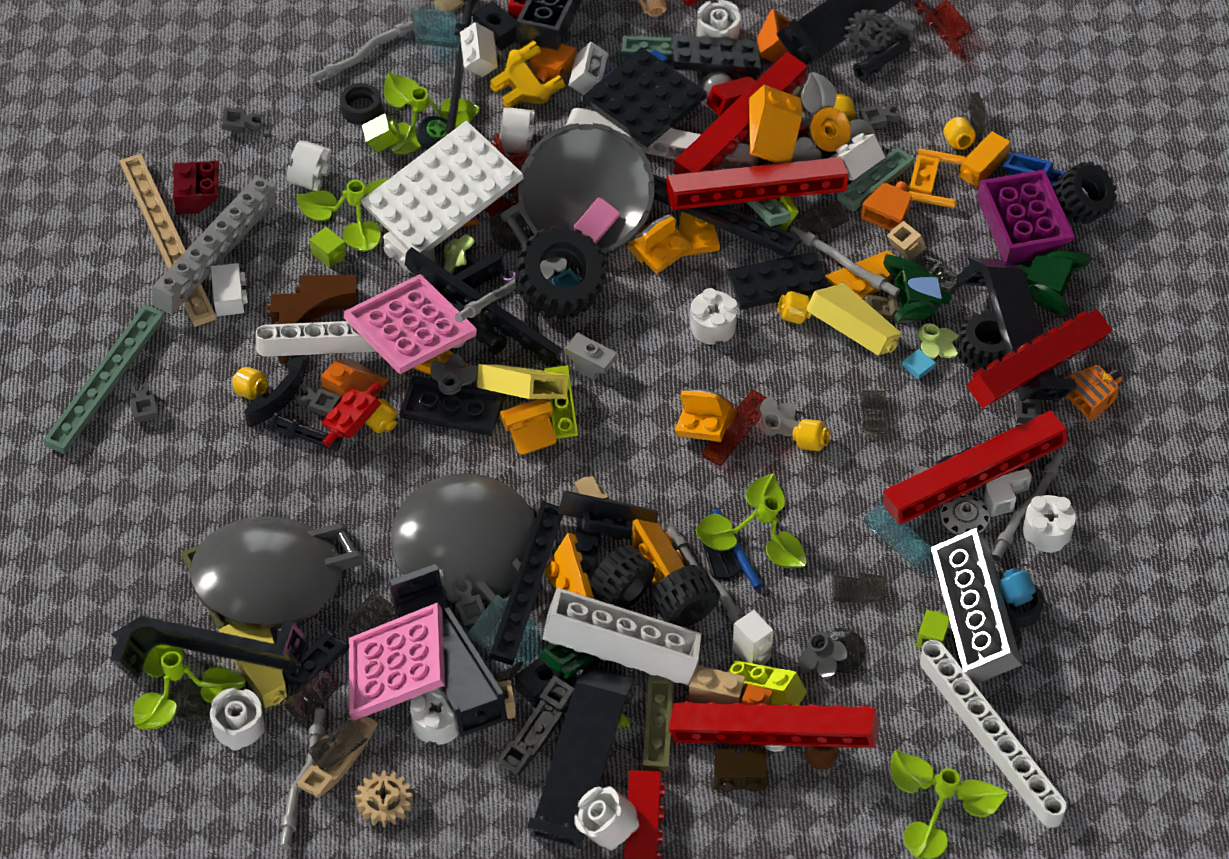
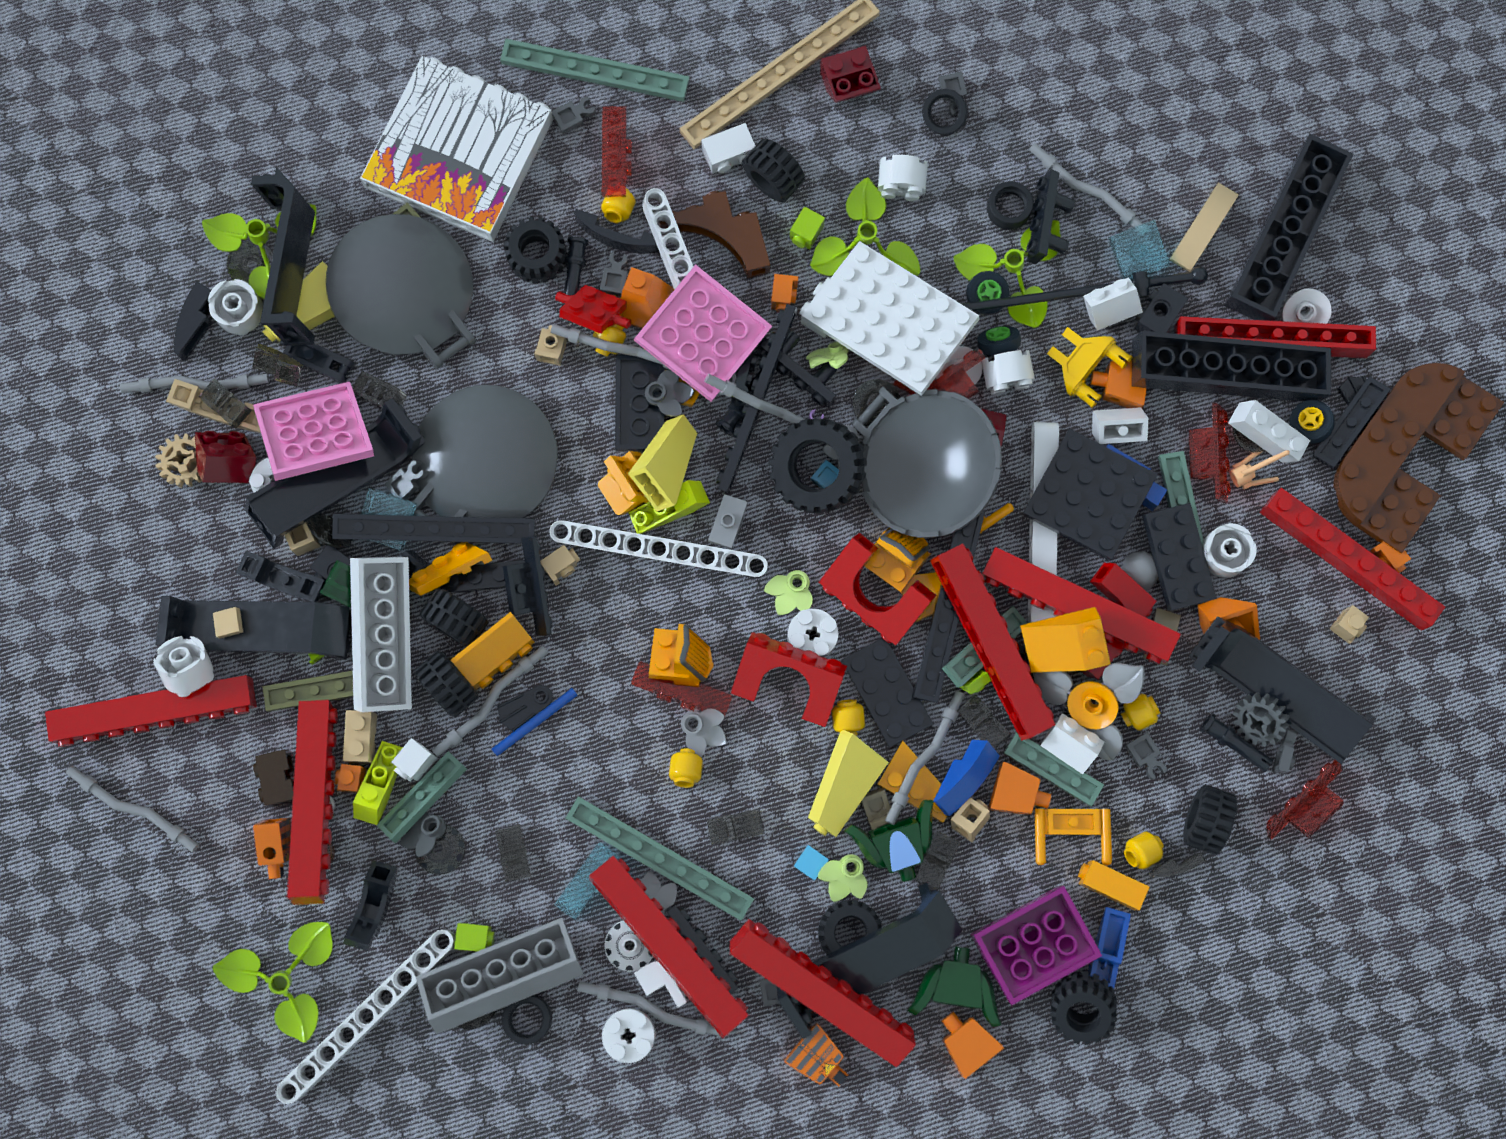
camera: 75 degrees right, 25 degrees up
(140, 502) = (457, 148): none -> panel
(200, 369) = (615, 152): none -> clear red bracket
(213, 245) = (773, 117): light grey brick -> none
(234, 763) = (192, 321): none -> black slope
(262, 112) = (927, 106): none -> black tyre
(267, 251) = (773, 170): none -> black tyre
(272, 439) = (532, 232): none -> black tyre
(371, 463) = (550, 353): none -> tan brick
(374, 430) = (575, 336): none -> light grey bar
(380, 77) = (1044, 205): none -> black plate
(381, 133) = (969, 236): lime brick -> none
(382, 276) = (782, 291): none -> orange brick
(396, 751) = (224, 457): none -> dark red slope
(487, 125) = (999, 340): none -> black wheel
(572, 771) = (227, 622): none -> tan tile
(596, 424) = (647, 544): none -> white beam
(597, 220) = (897, 485): bright pink slope -> none
(628, 22) = (1209, 453): none -> clear red bracket
(666, 281) = (844, 583): none -> red arch
(668, 331) = (787, 595): none -> yellowish green plate
(725, 345) = (821, 673): none -> red arch
(769, 499) = (542, 771): lime plant -> none
(793, 652) = (421, 797): none -> sand green plate
(806, 778) = (275, 835): none -> orange torso
(867, 232) = (966, 776): none -> blue slope
(889, 473) = (660, 858): none -> sand green plate
(892, 711) = (372, 906): none -> black arch
(944, 78) = (1210, 819): none -> black tyre
(1017, 587) = (528, 1014): dark azure head -> none
(1102, 282) = (968, 1044): none -> orange torso

